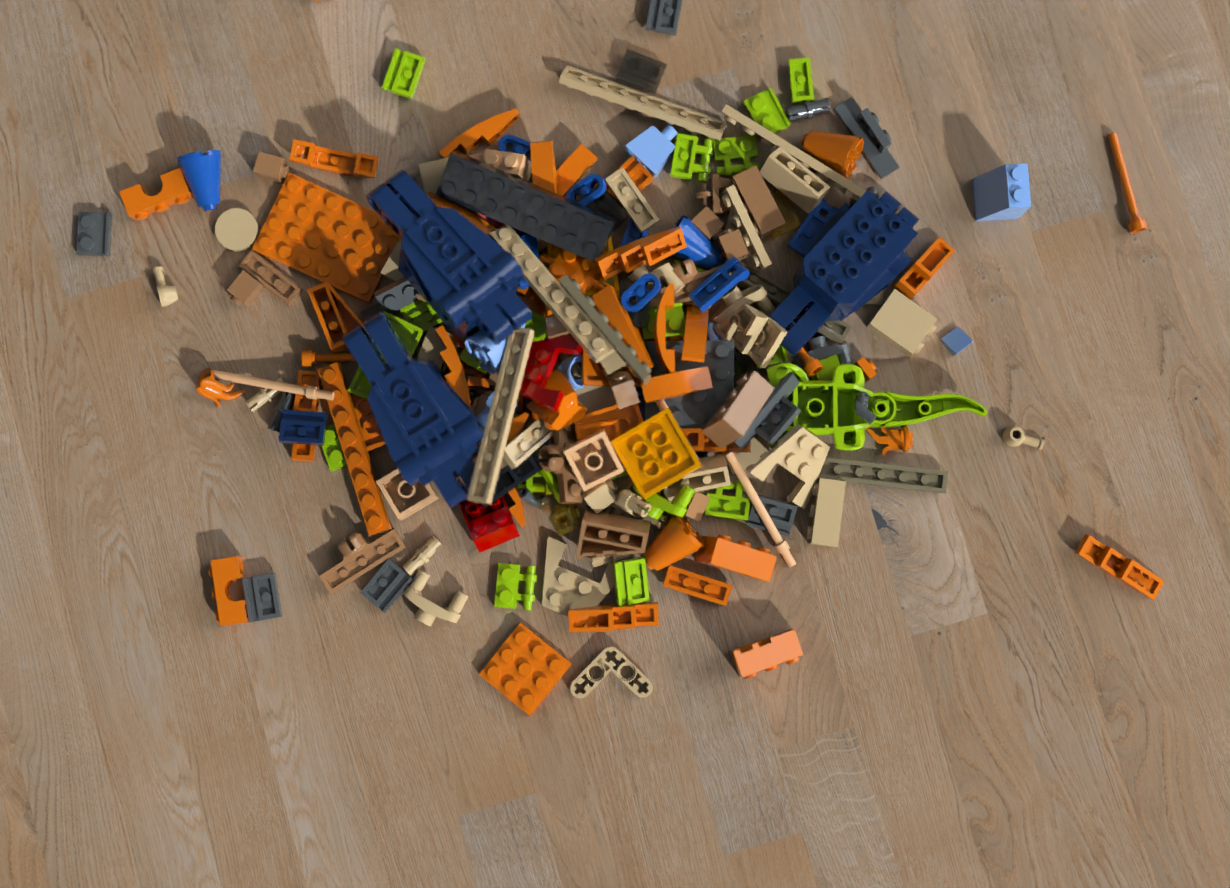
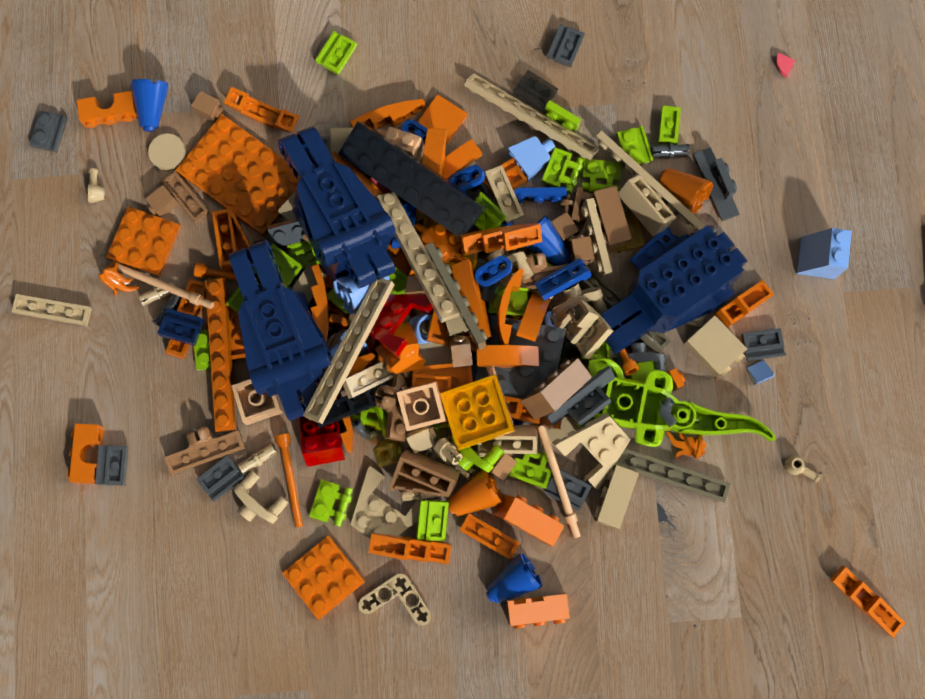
camera: 15 degrees right, 5 degrees down
(150, 438) = (51, 310): none -> tan plate
(235, 338) = (143, 241): none -> orange plate
(447, 532) = (283, 443): none -> orange piece
(542, 123) = (443, 115): none -> orange tile
(624, 229) = (492, 215): none -> lime plate
(671, 191) = (540, 195): none -> blue plate
(673, 93) = (558, 113): none -> lime plate
(734, 627) = (514, 580): none -> blue cone
(954, 309) = (763, 344): none -> dark grey plate

